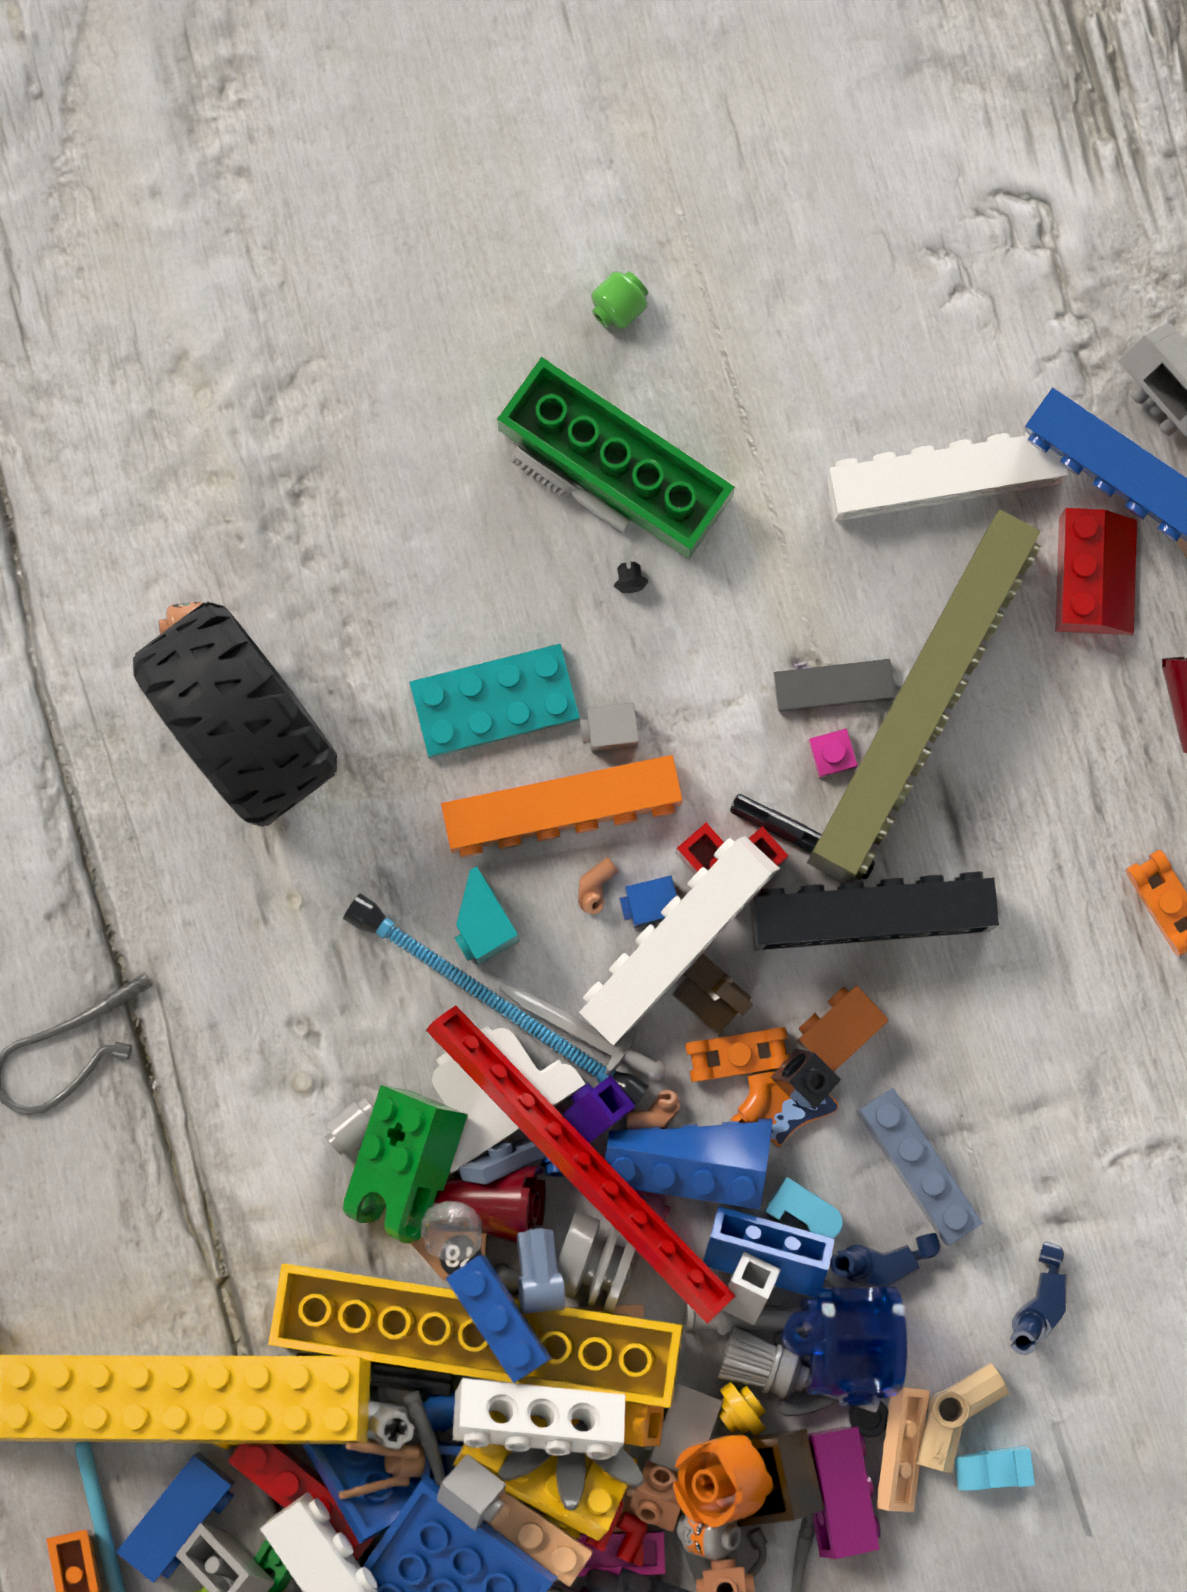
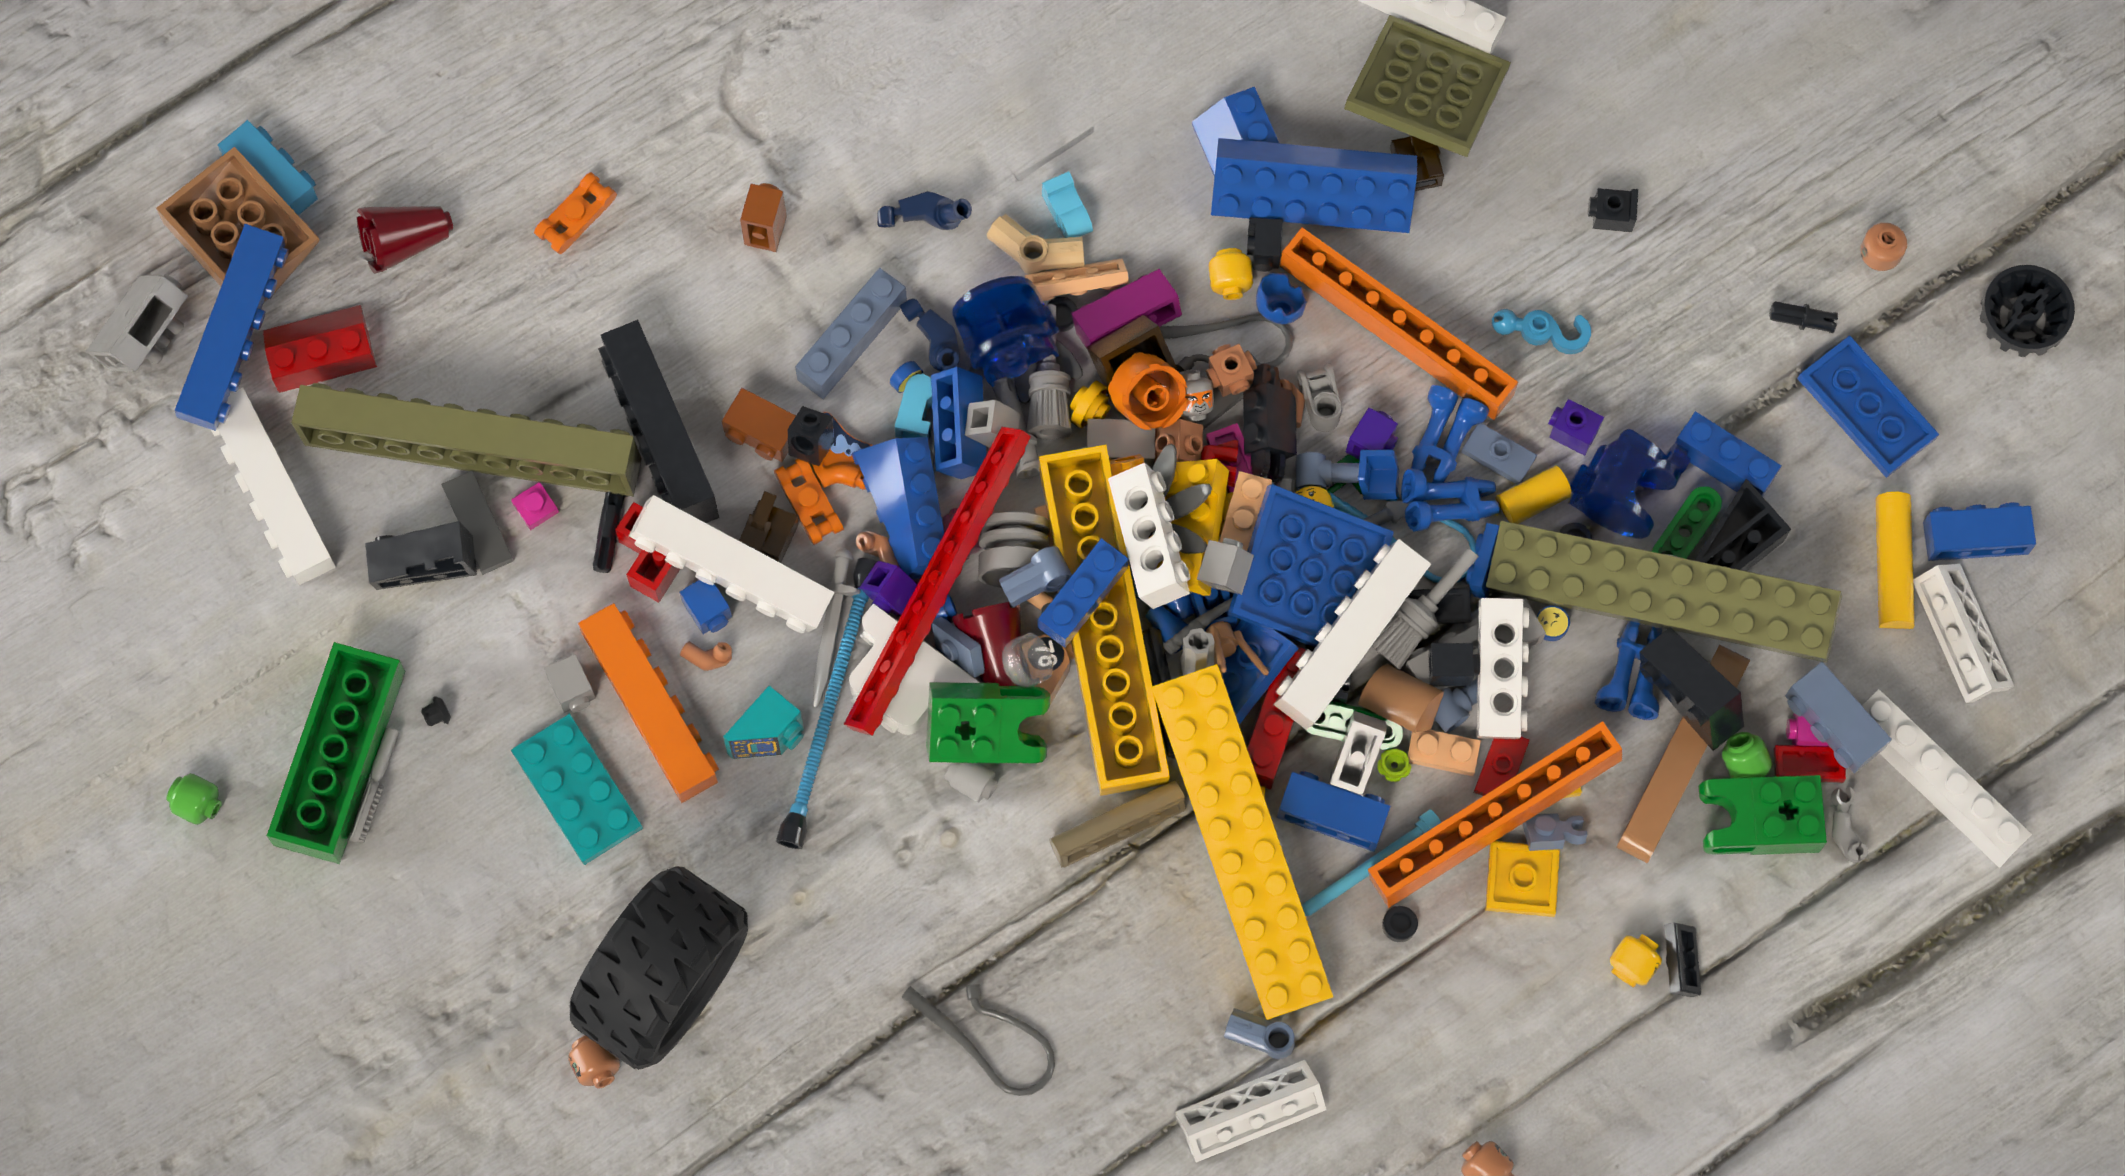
camera: 110 degrees left, 10 degrees down
(28, 1545) = (1400, 924): none -> black tile
(249, 1271) = (1118, 824): none -> dark tan brick
(808, 610) = (421, 556): none -> black wedge
(849, 1212) = (902, 374): none -> blue tile
(1090, 1111) = (763, 217): none -> dark orange brick

